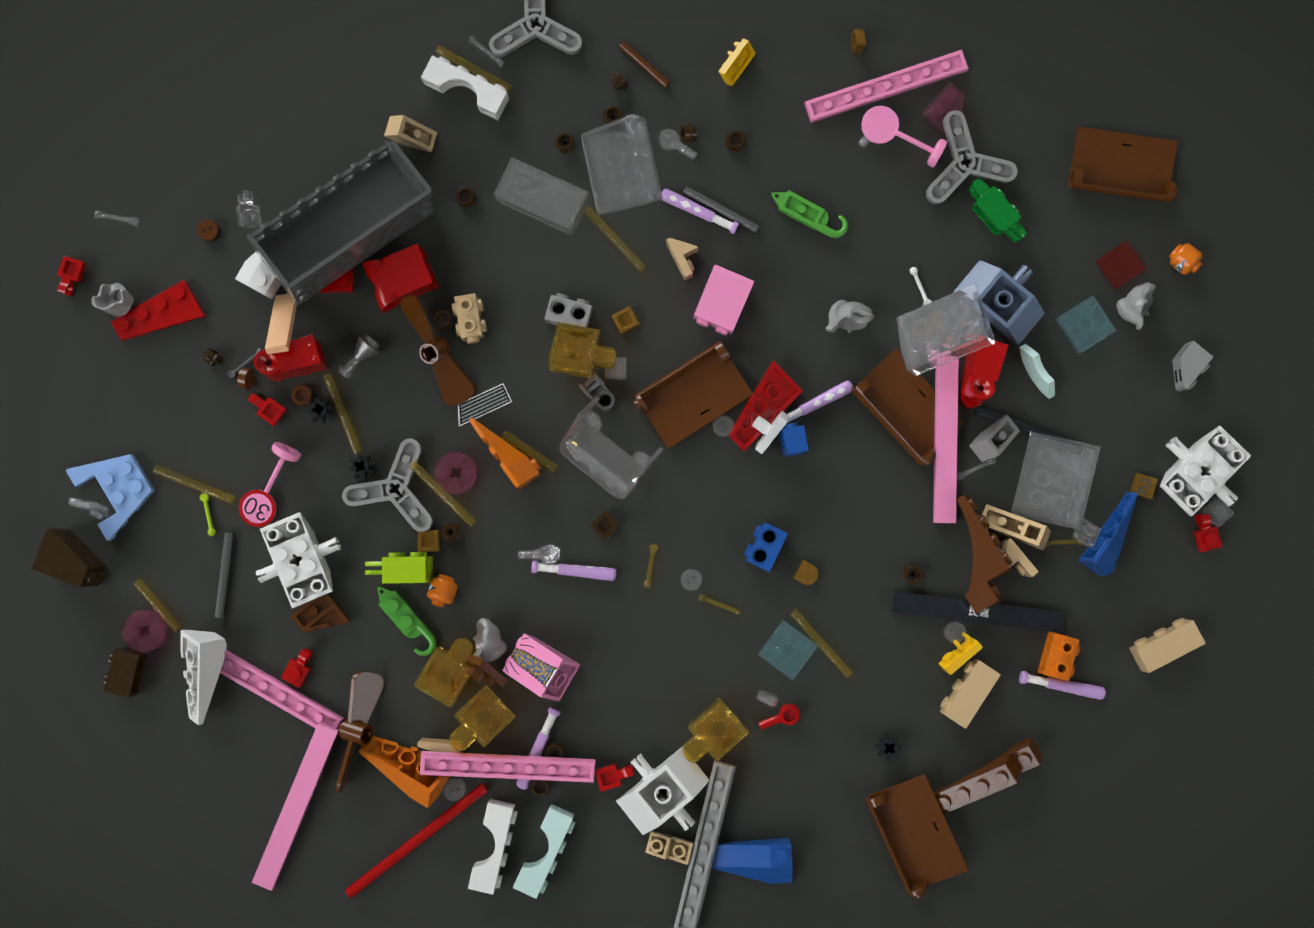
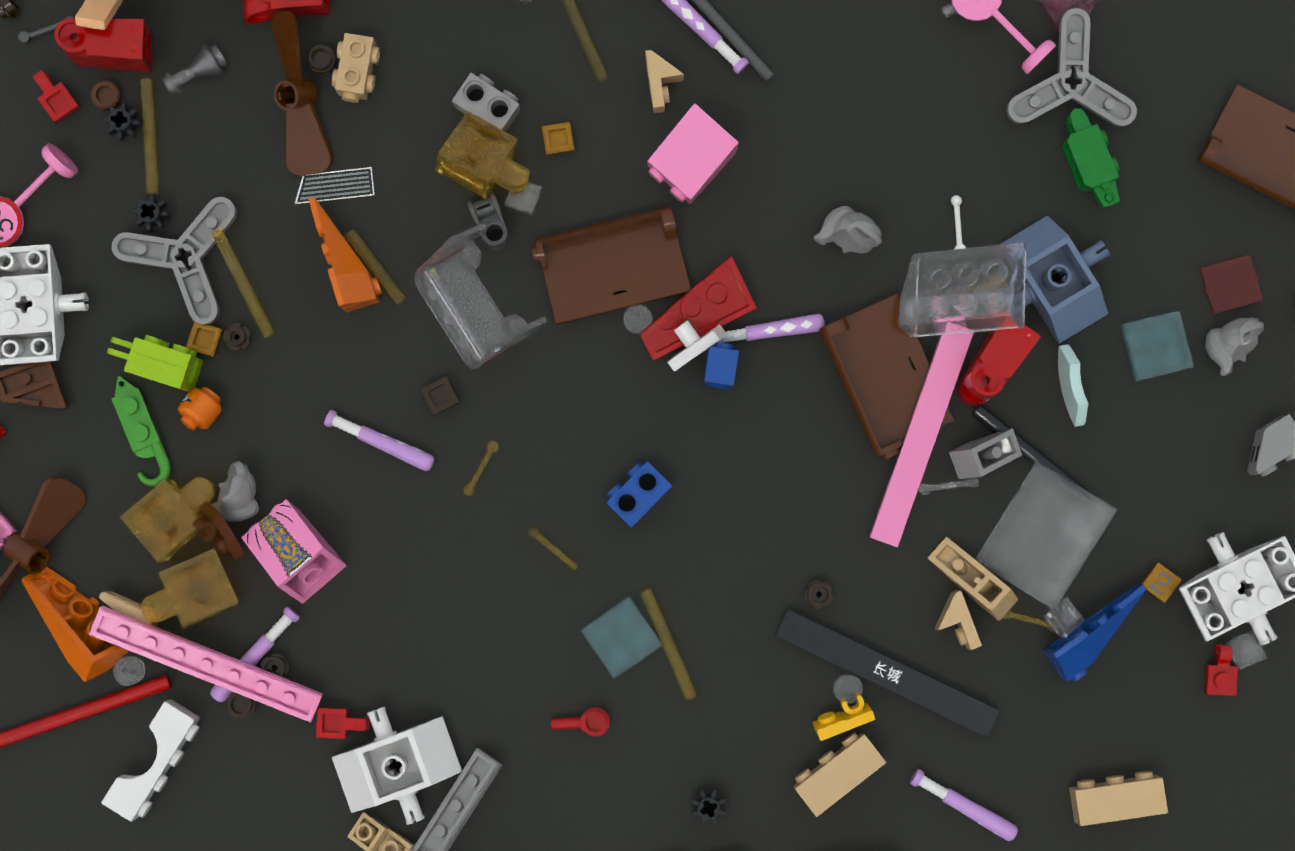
camera: 15 degrees right, 0 degrees up
(245, 378) = (40, 48): reddish brown tile -> none
(468, 474) = (285, 270): clear pink plate -> none
(533, 875) = (191, 816): light aqua arch -> none
(547, 554) = (352, 408): clear plate -> none
(691, 579) = (527, 504): clear tile -> none
(714, 732) = (488, 711): clear yellow brick -> none
(767, 698) = (573, 690): clear tile -> none
(806, 573) = (680, 547): pearl gold tile -> none
(807, 213) = (842, 79): bright green plate -> none
(988, 559) = (921, 606): reddish brown arch -> none
(1059, 656) = (972, 766): orange brick -> none

